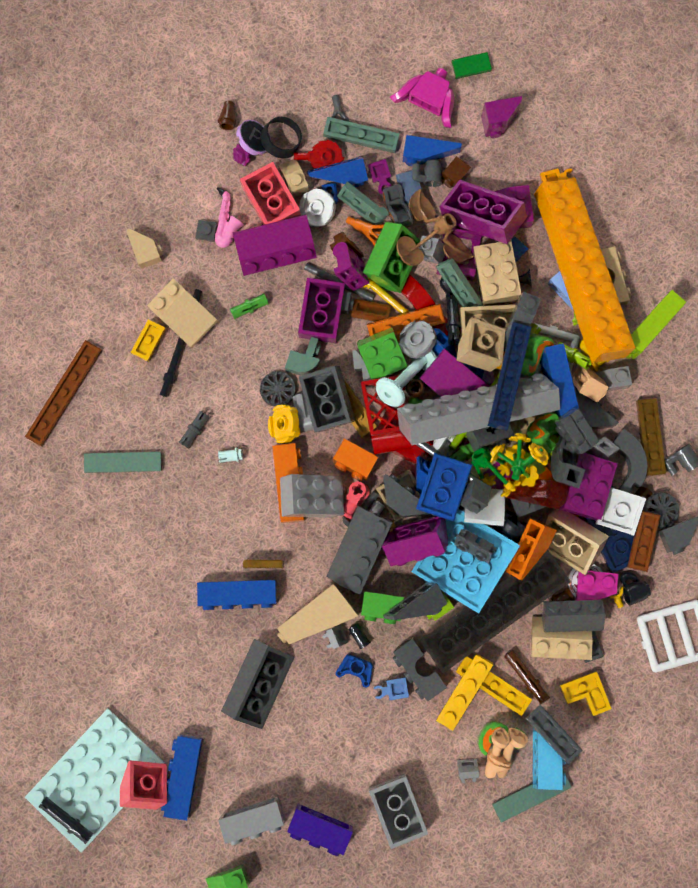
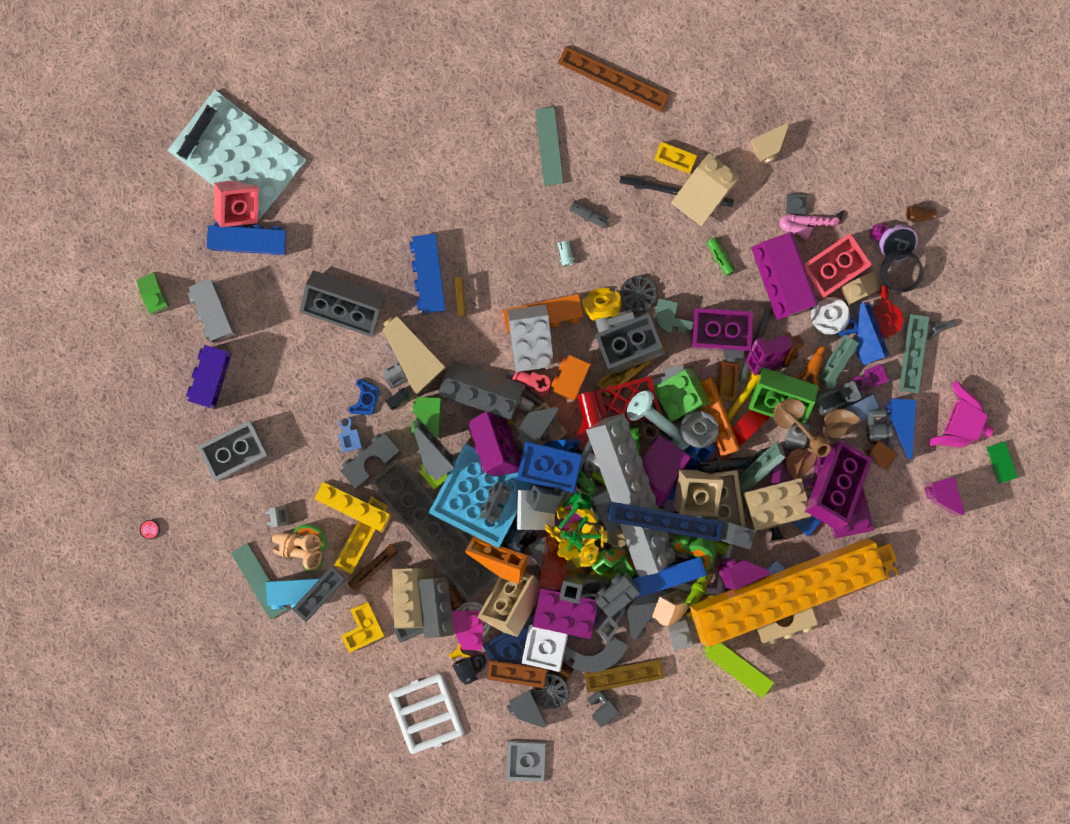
camera: 85 degrees right, 5 degrees up
(562, 314) = (739, 573): none -> magenta slope

